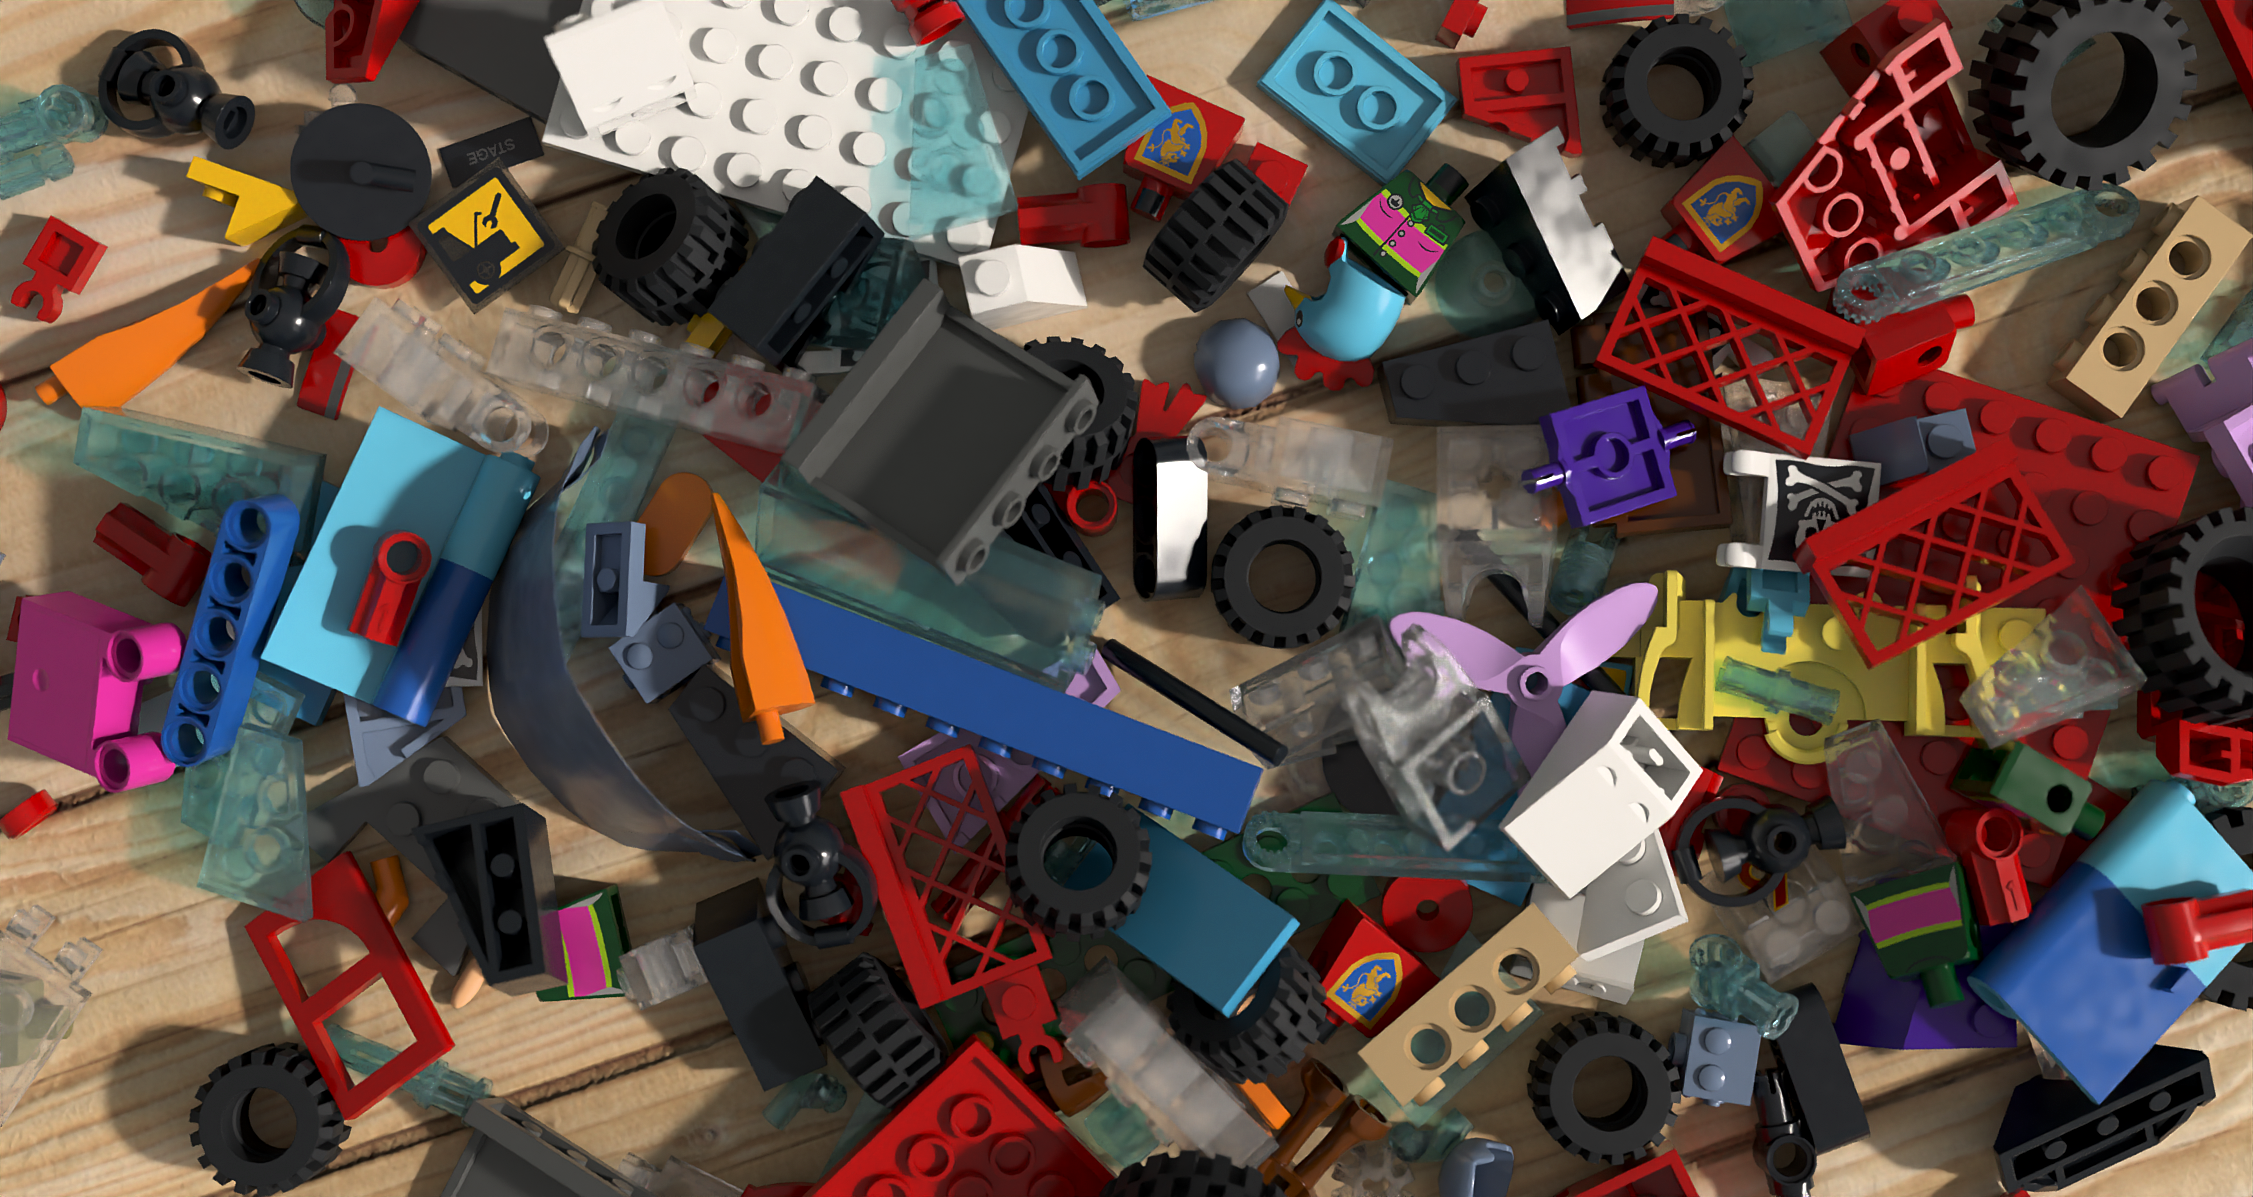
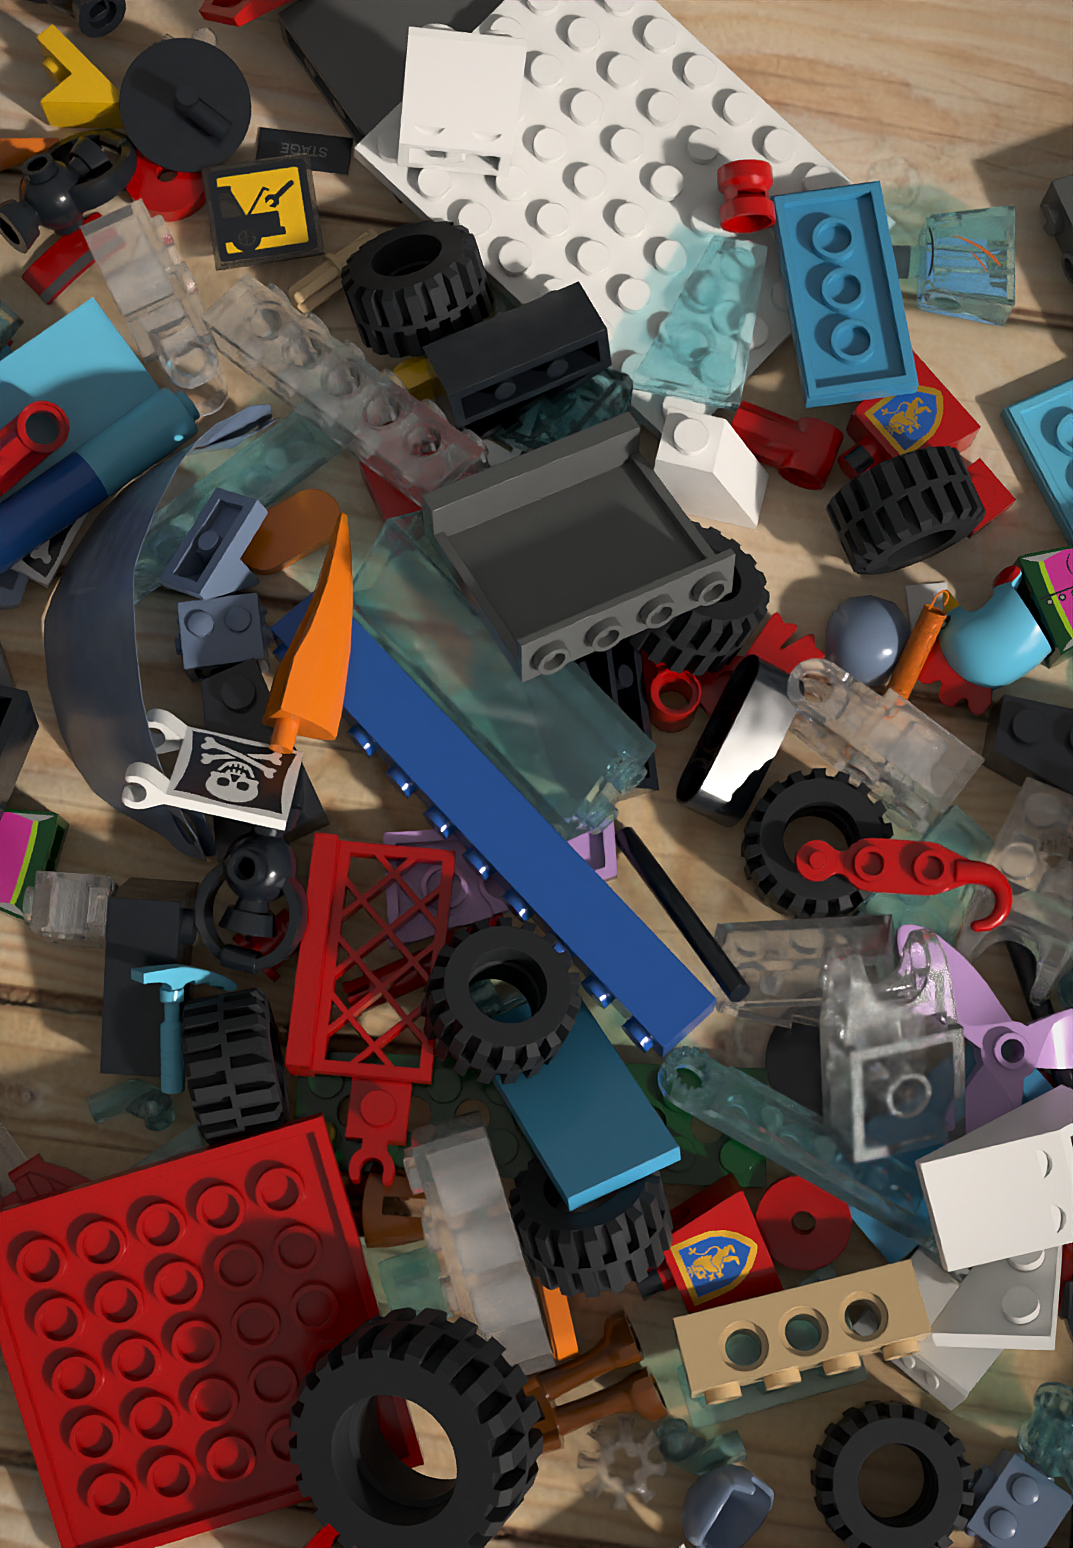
camera: 25 degrees right, 10 degrees down
(731, 796) = (215, 775): none -> flag
(791, 998) = (171, 994): none -> medium azure piece
(1286, 360) = (917, 648): none -> orange piece
(1370, 570) = (905, 869): none -> red piece

